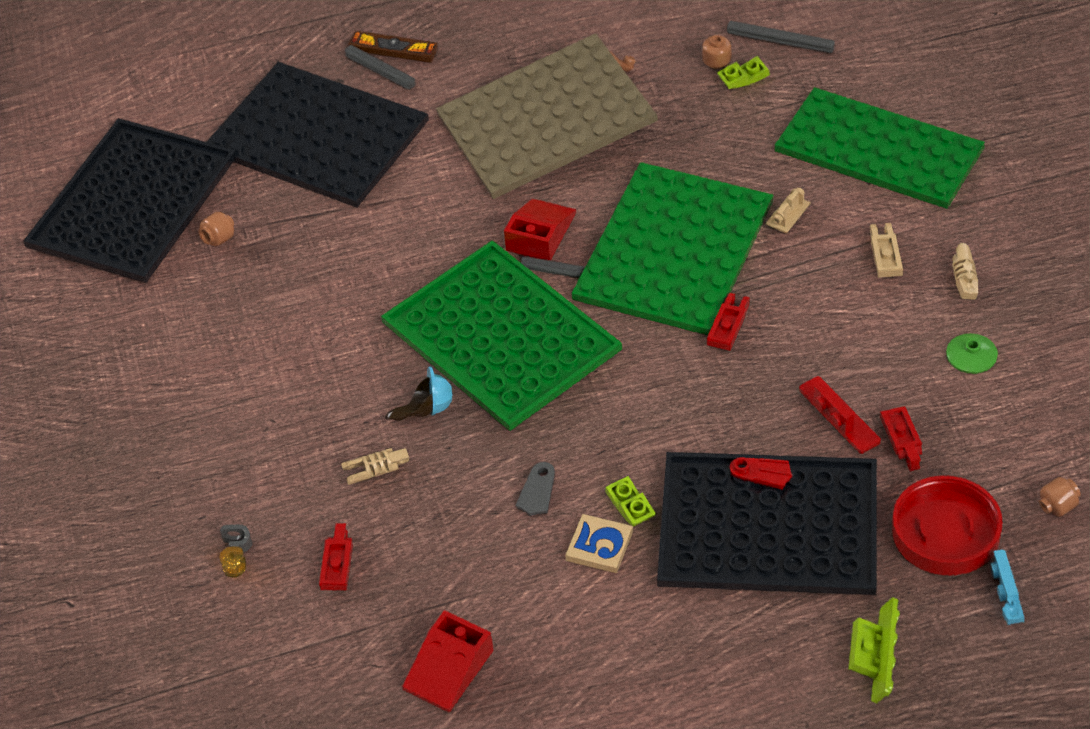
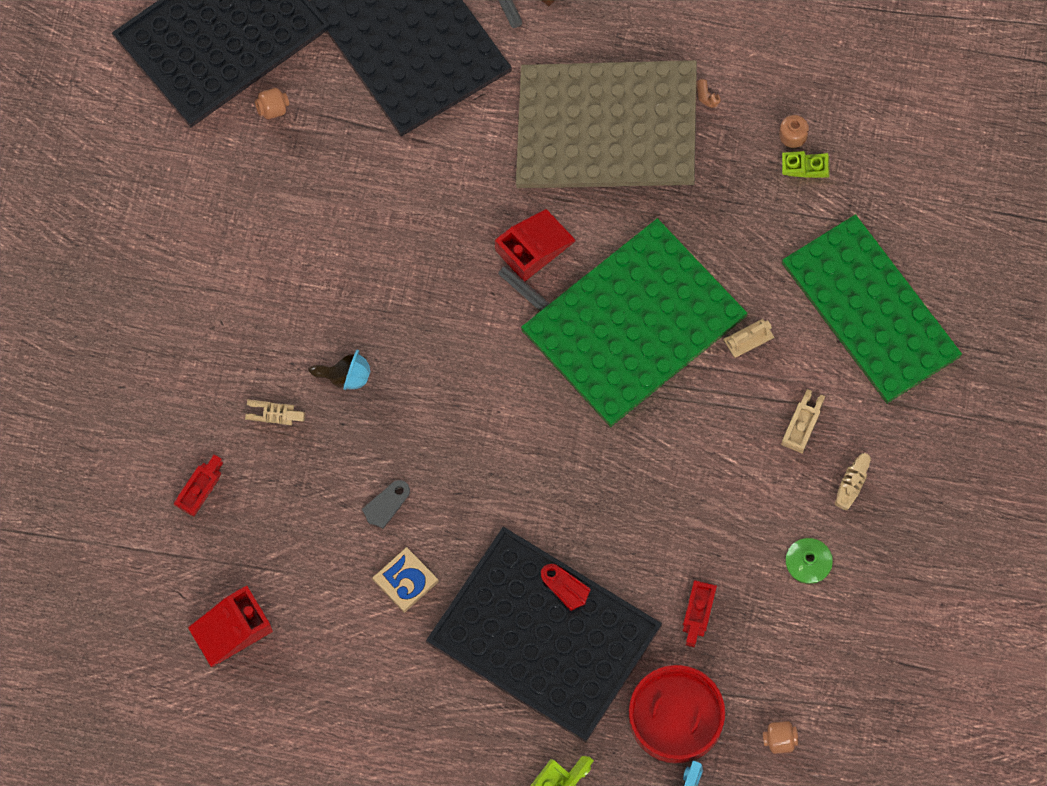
camera: 25 degrees right, 20 degrees up
(233, 557) = (123, 444): leg -> none
(501, 334) = (442, 336): green plate -> none
(629, 502) = (450, 555): lime slope -> none
(728, 323) = (629, 425): red hinge -> none
(781, 36) = (864, 140): dark grey axle -> none
(839, 414) = (662, 563): red bracket -> none

